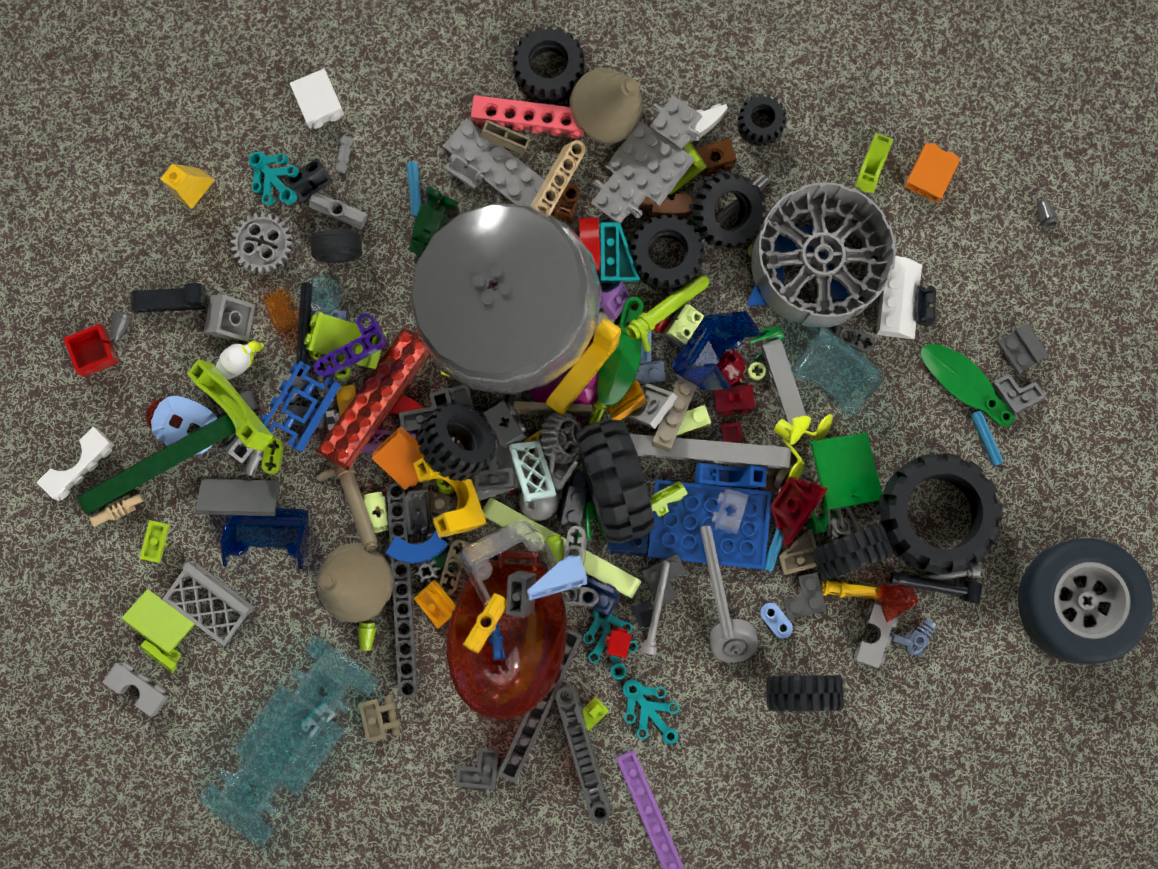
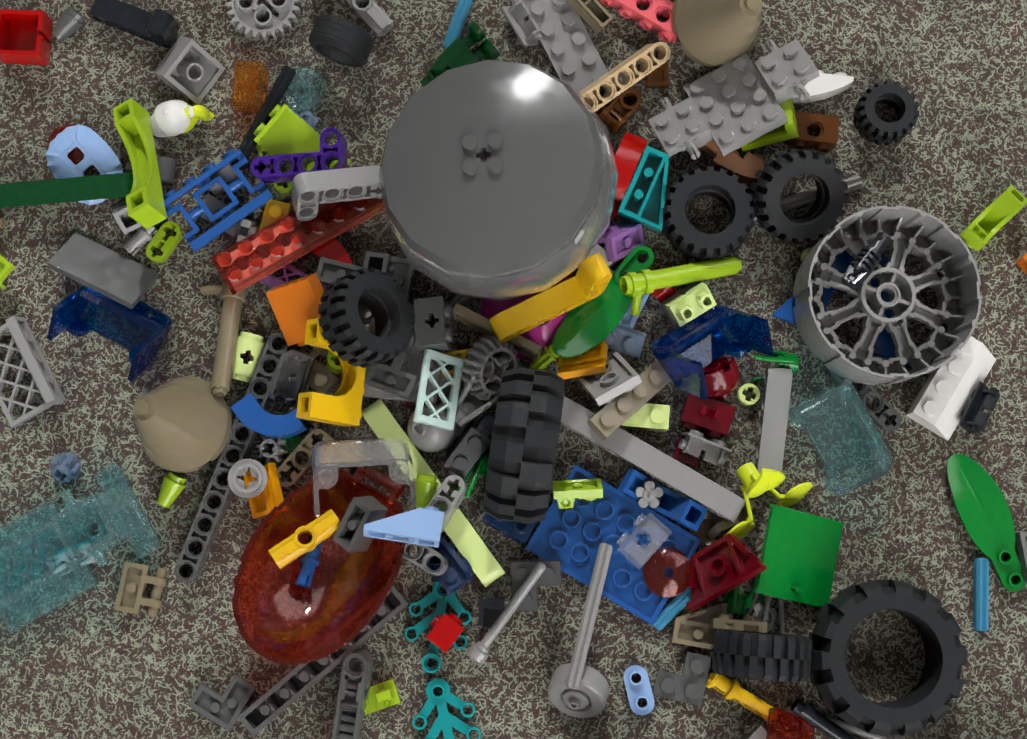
camera: 30 degrees right, 0 degrees up
(280, 655) = (65, 467): none -> sand blue gear
(385, 356) = (332, 186): none -> light grey beam
(417, 608) = (238, 486): none -> light grey gear
(584, 167) = (659, 77): none -> reddish brown tile
(718, 476) = (648, 495): none -> light grey plant
(749, 422) = (713, 449): none -> light grey hinge
(749, 531) = (654, 572): none -> clear red dish
(797, 236) = (866, 261): none -> black hinge
(832, 535) = (748, 623): none -> dark tan wing

